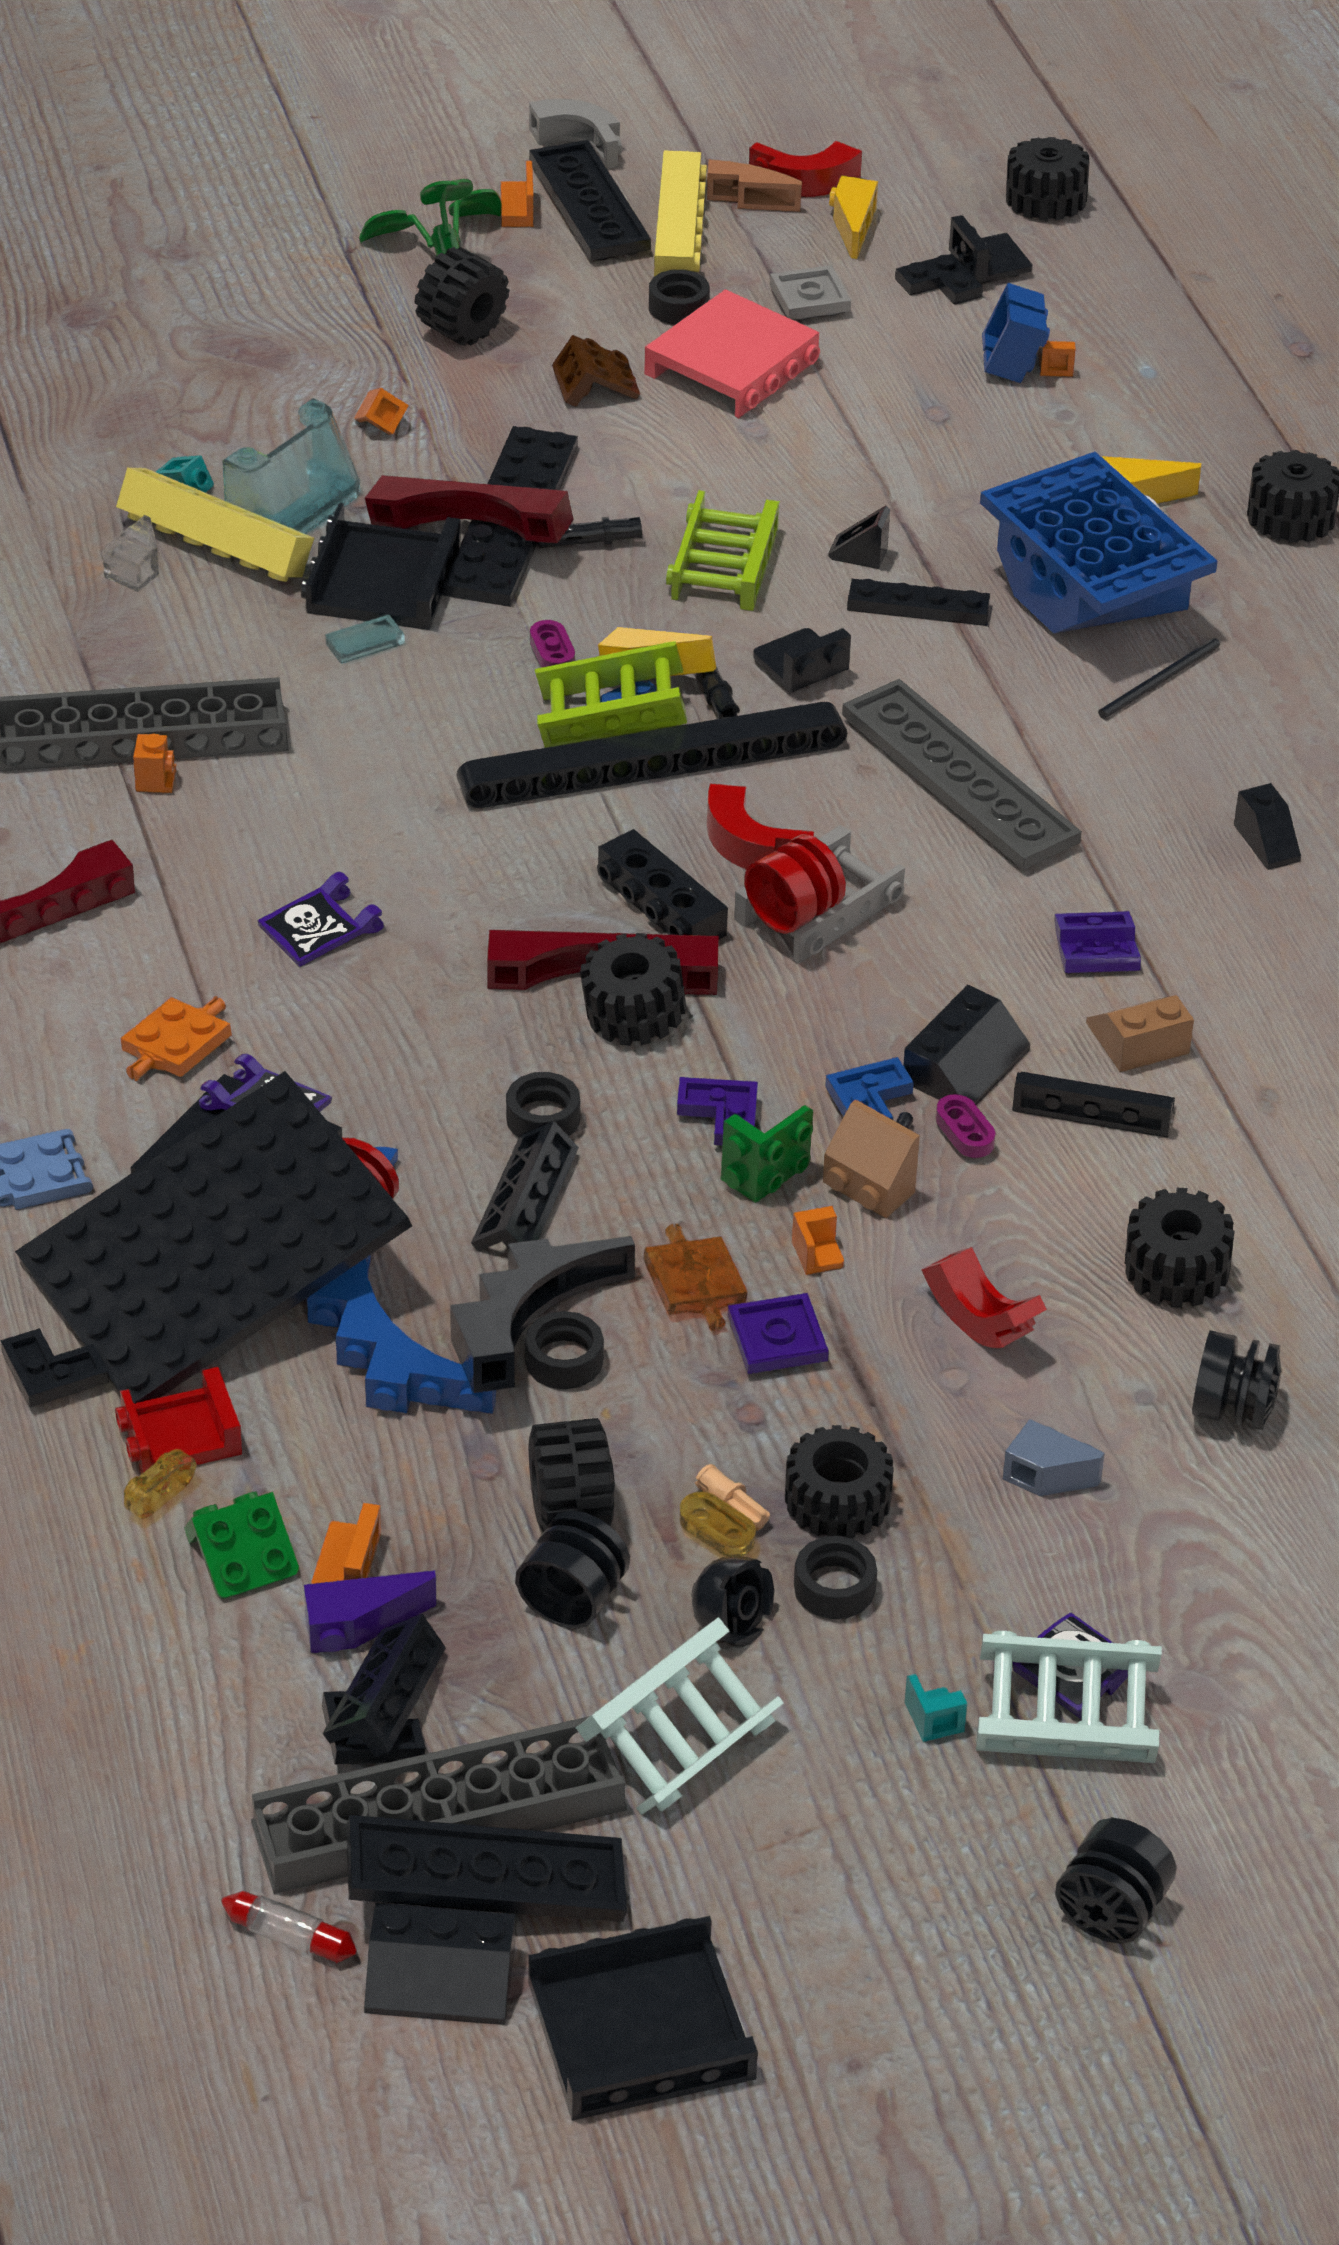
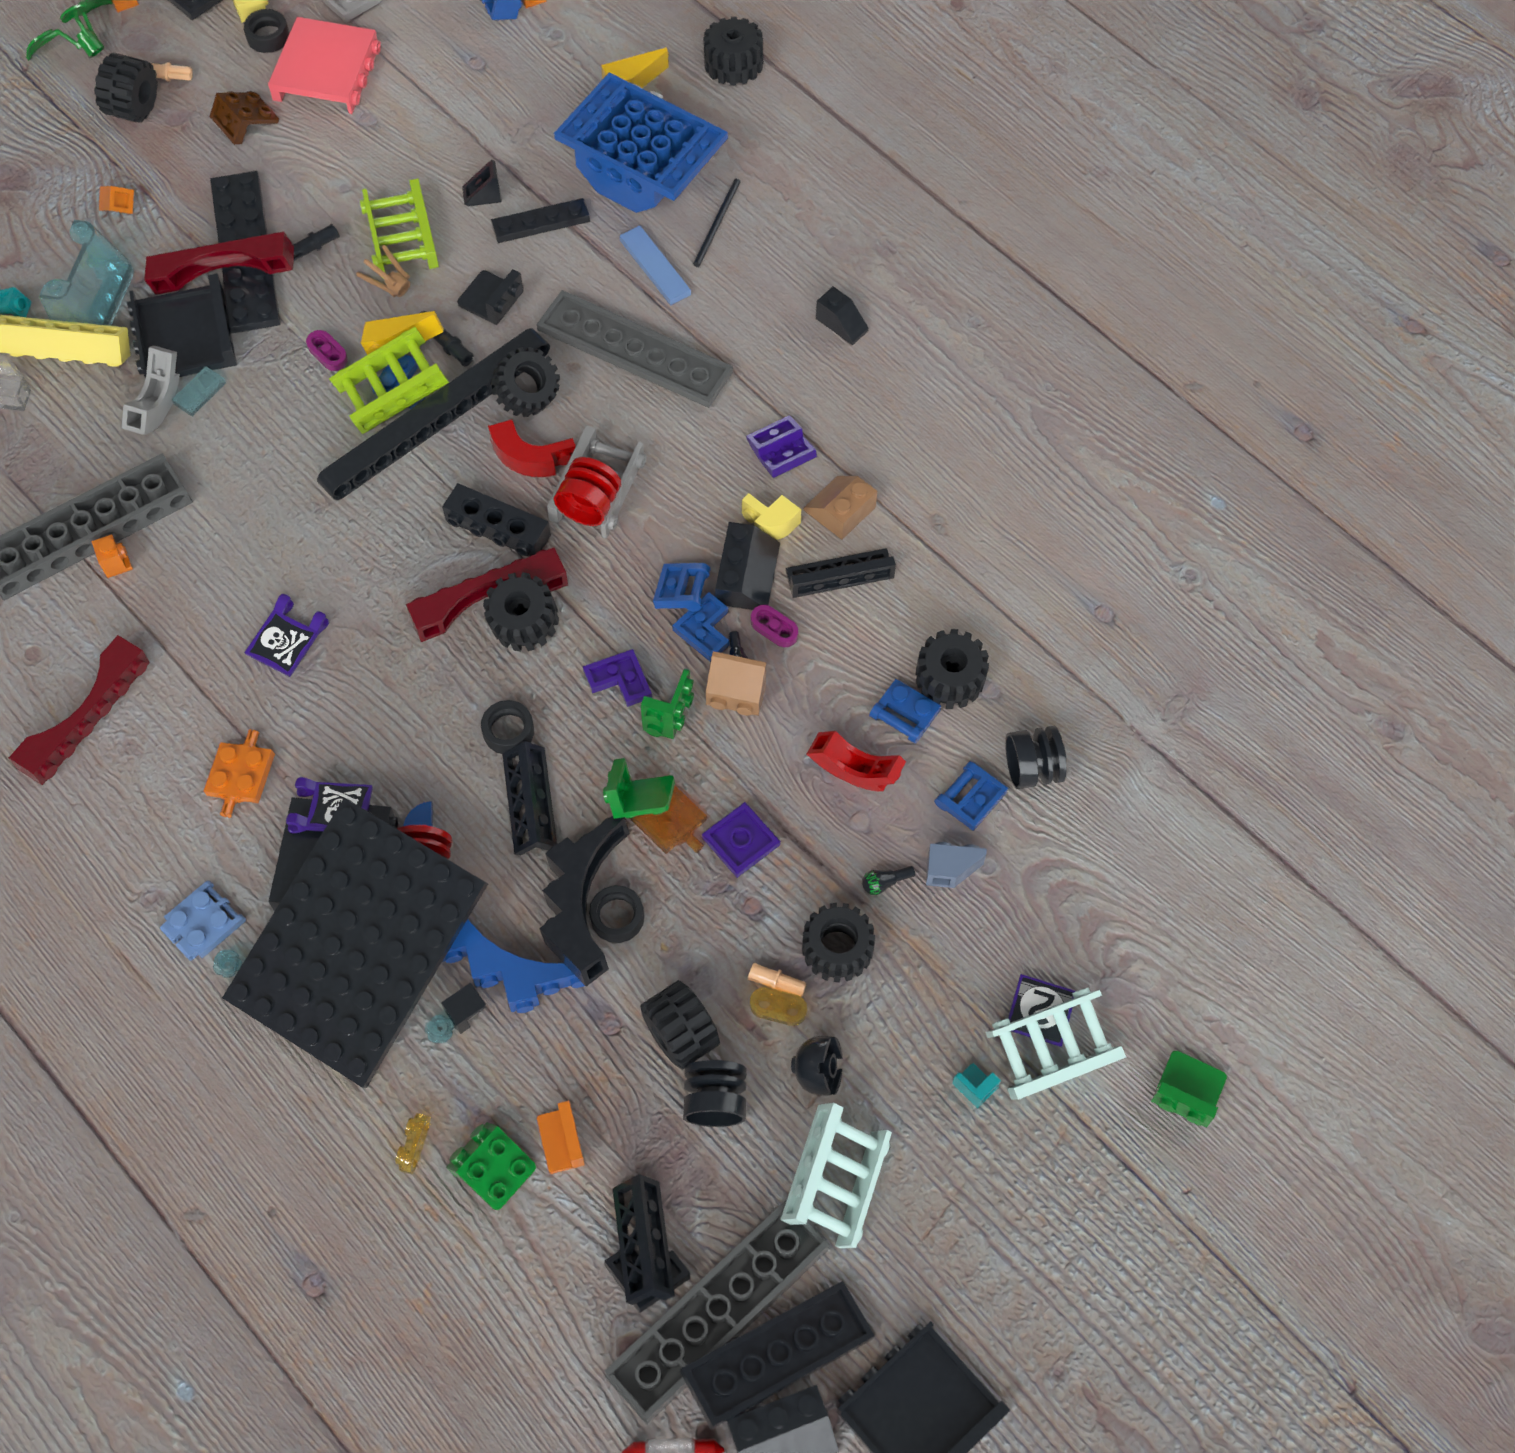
camera: 25 degrees left, 20 degrees up
(40, 1217) = (223, 957): none -> clear light blue plate
(47, 1376) = (294, 1090): black plate -> none
(194, 1421) = (403, 1089): red panel -> none
(263, 1386) = (439, 1036): none -> clear light blue plate
(304, 626) = (155, 399): none -> light grey arch
(305, 1362) = (463, 1006): none -> black panel
(356, 1610) = (589, 1186): dark purple slope -> none
(529, 303) = (168, 71): none -> light nougat axle
(646, 1216) = (636, 797): none -> green bracket
(685, 604) = (396, 283): none -> medium nougat plant
(799, 730) = (538, 368): none -> black tyre
(815, 1240) = (728, 756): orange panel -> none
(835, 1552) = (873, 992): black tyre -> none
(856, 1032) = (673, 585): none -> blue plate
(937, 1444) = (878, 881): none -> black piece
(1040, 1013) = (775, 520): none -> light yellow brick
(1044, 696) = (655, 265): none -> medium blue tile
(1098, 1273) = (908, 704): none -> blue plate
(1116, 1880) = (1152, 1172): black wheel -> none
(1129, 1409) = (977, 801): none -> blue plate
(1231, 1826) = (1190, 1088): none -> green bracket

